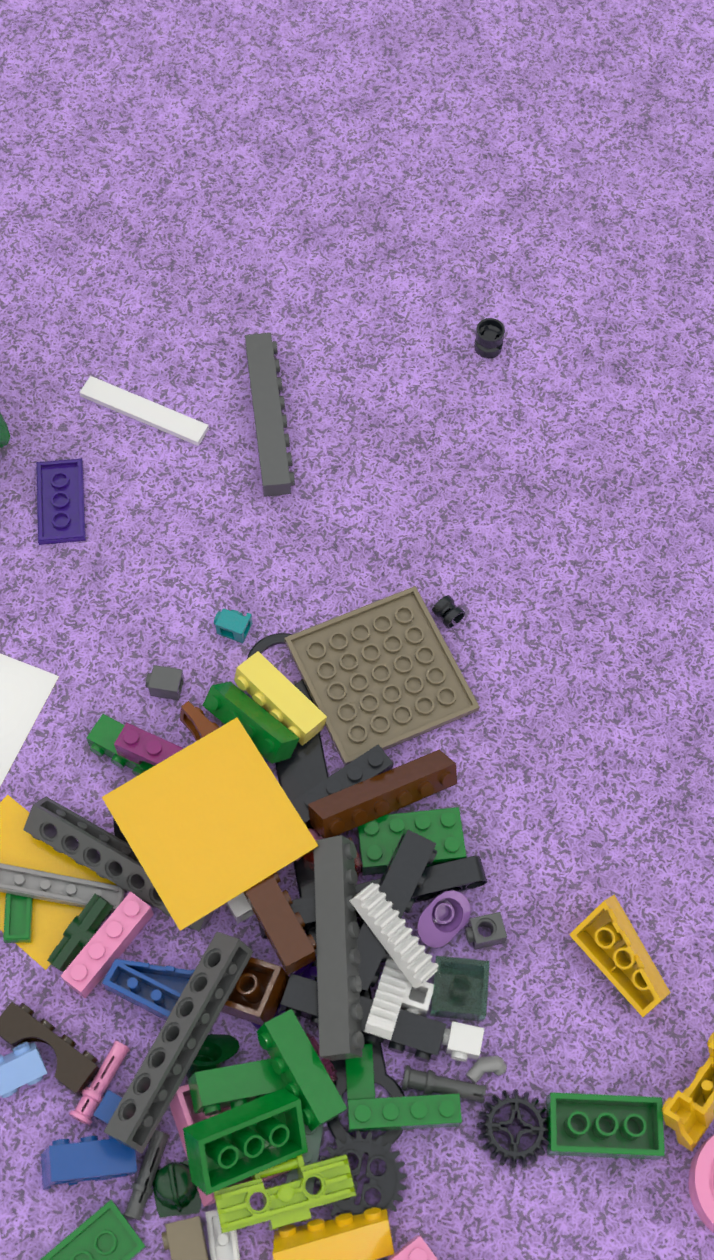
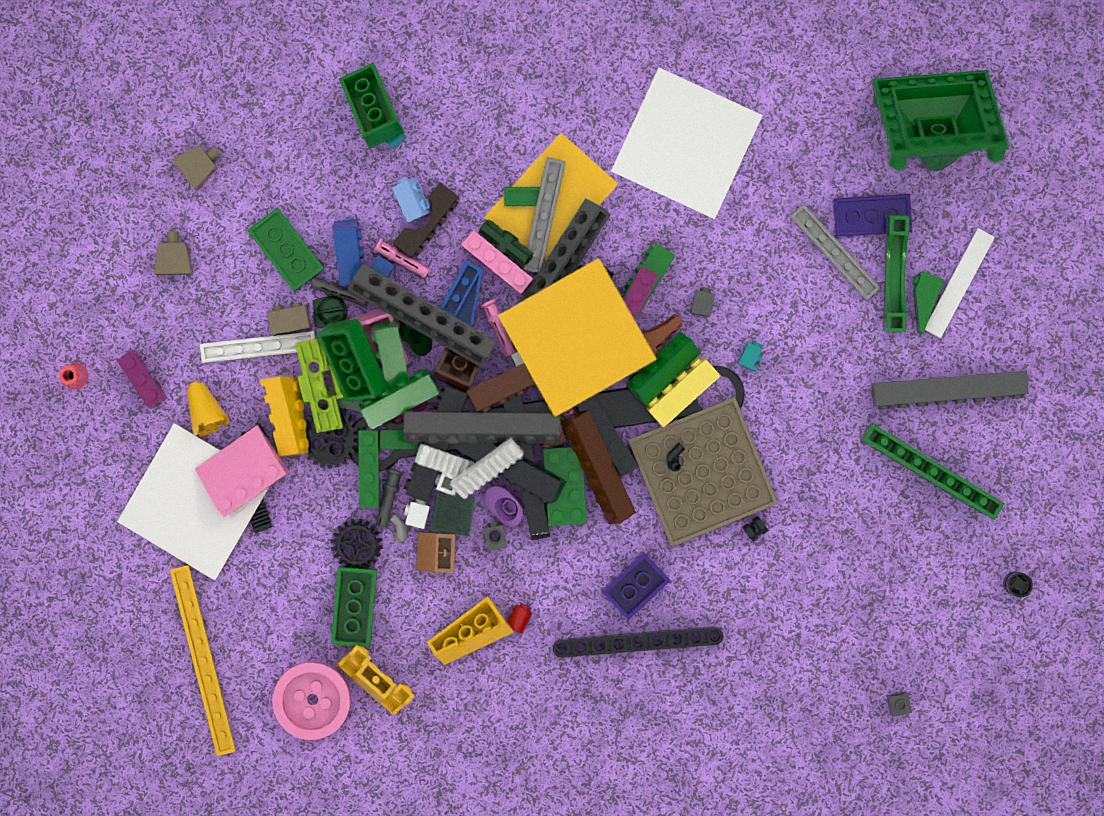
camera: 90 degrees right, 25 degrees up
(84, 466) = (894, 285): none -> green arch
(103, 540) = (835, 252): none -> light grey tile
(159, 440) = (925, 295): none -> green slope
(187, 944) = (492, 314): none -> bright pink pin
(364, 426) = (932, 471): none -> green brick
(364, 706) = (673, 458): none -> black arm
(515, 1010) = (436, 552): none -> medium nougat slope
(534, 745) = (635, 585): none -> dark purple brick
(591, 892) = (520, 617): none -> red brick
(606, 754) = (647, 641): none -> black beam
(642, 450) = (899, 704): none -> dark grey brick

